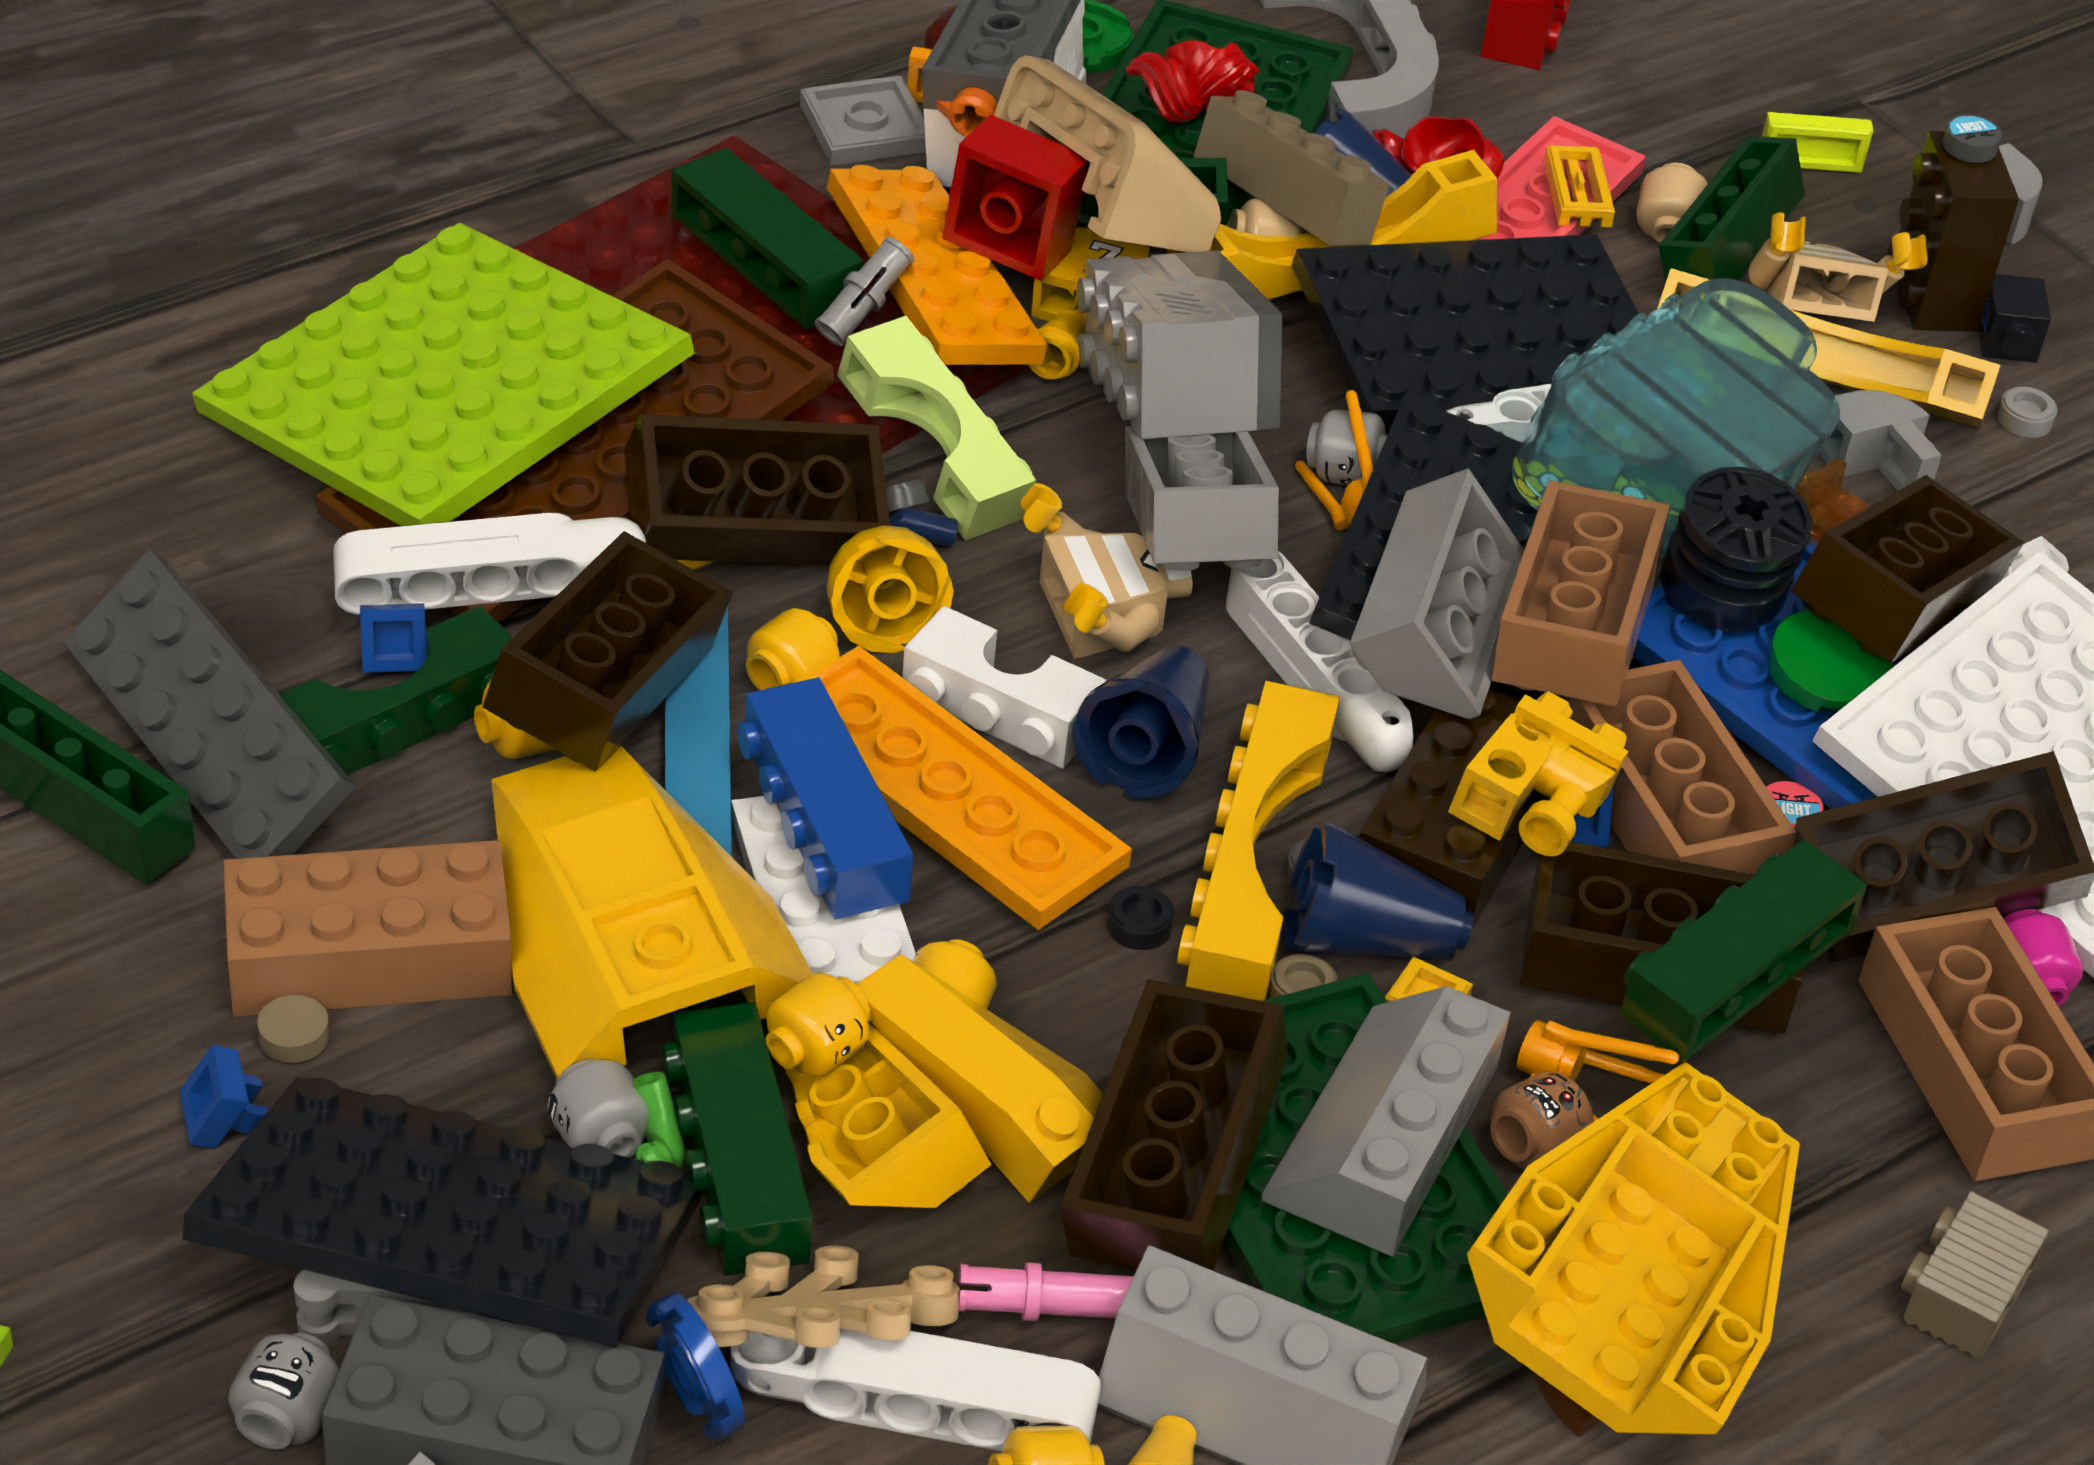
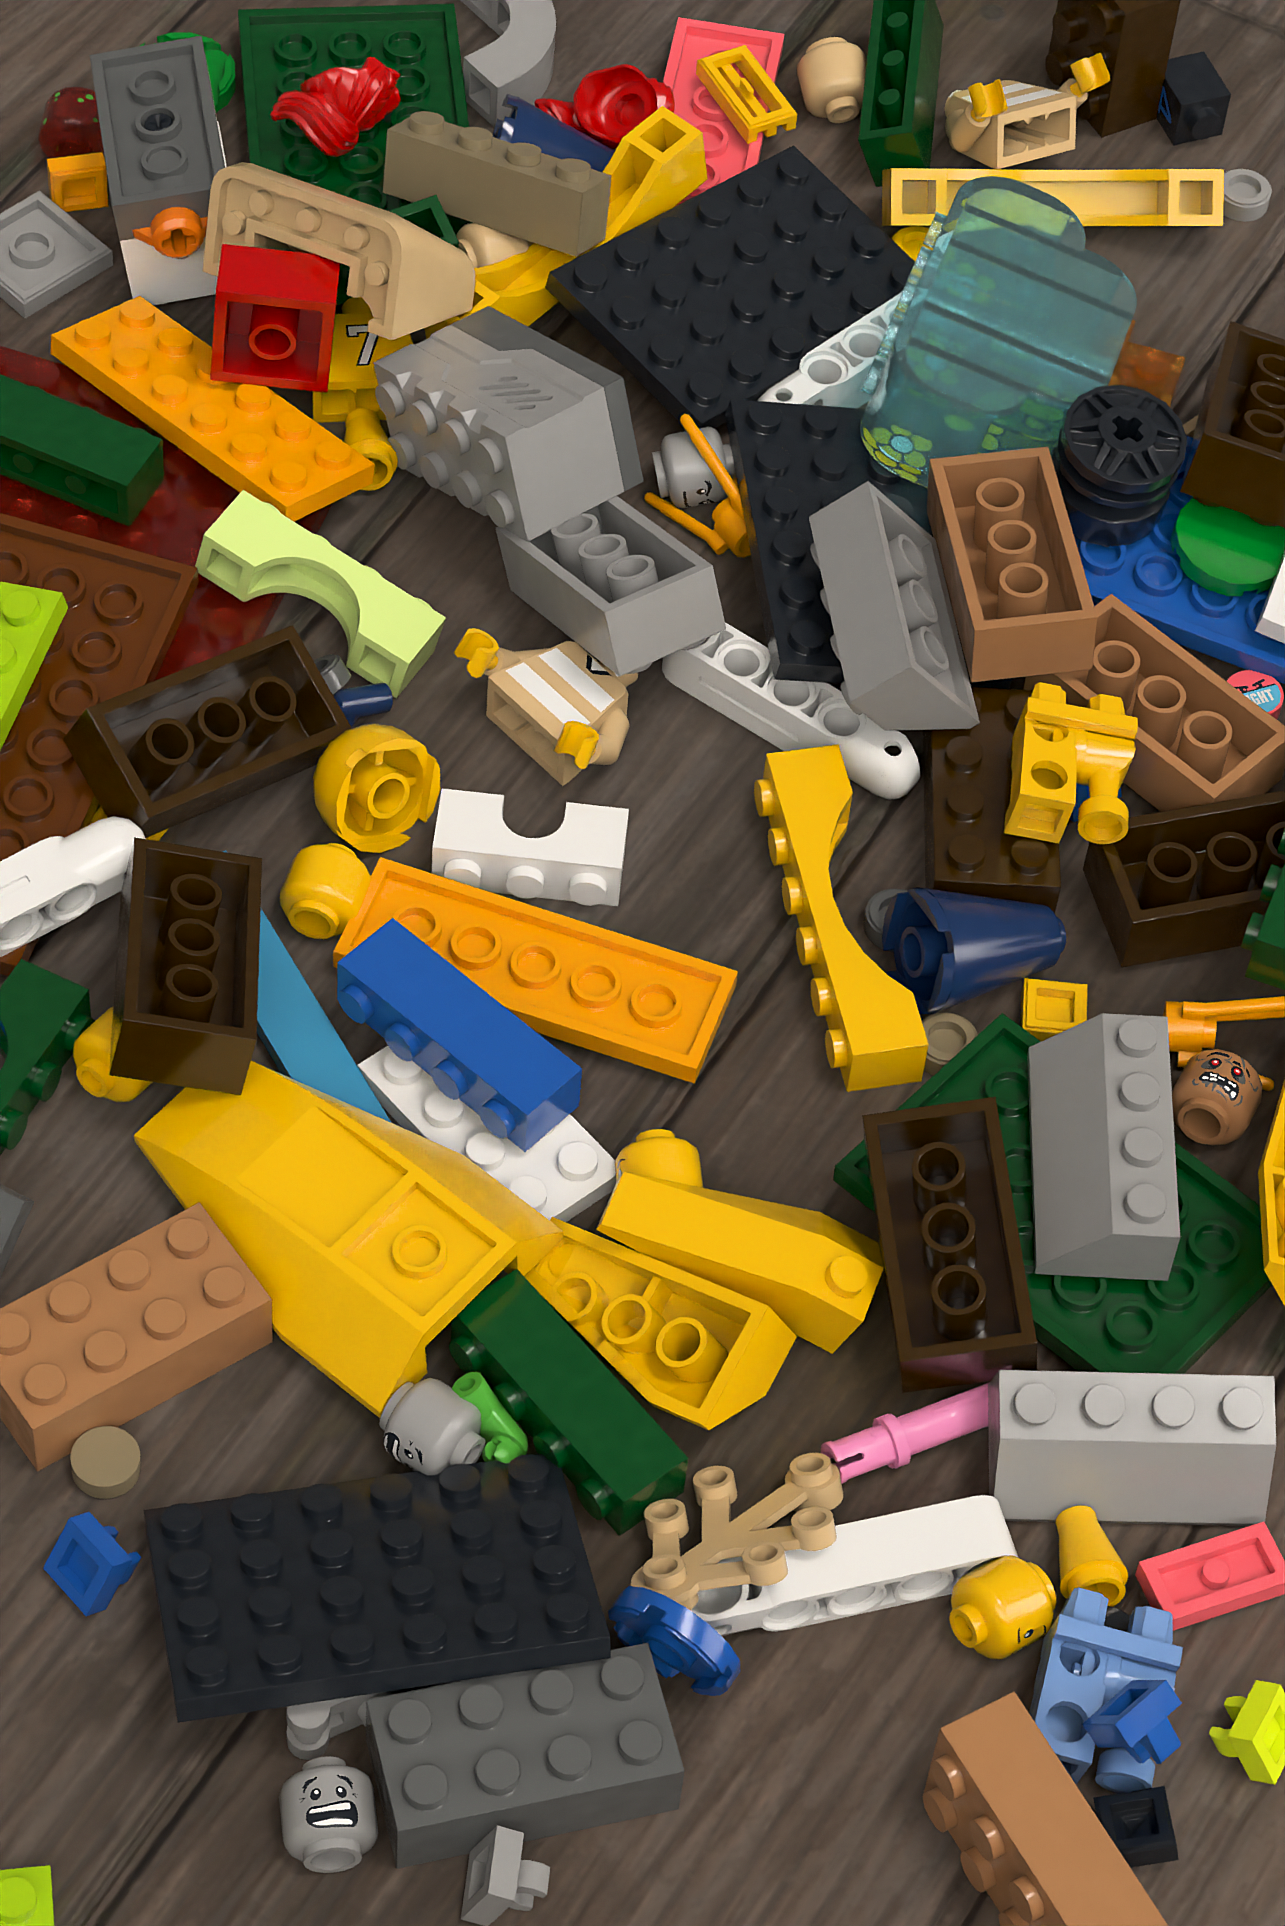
camera: 25 degrees left, 10 degrees up
(818, 1024) = (587, 1269): yellow head -> none
(840, 317) = (176, 470): light grey pin -> none
(1140, 918) = (773, 1034): black tile -> none
(1145, 723) = (684, 836): dark blue cone -> none
(1882, 434) = (1158, 275): light grey brick -> none

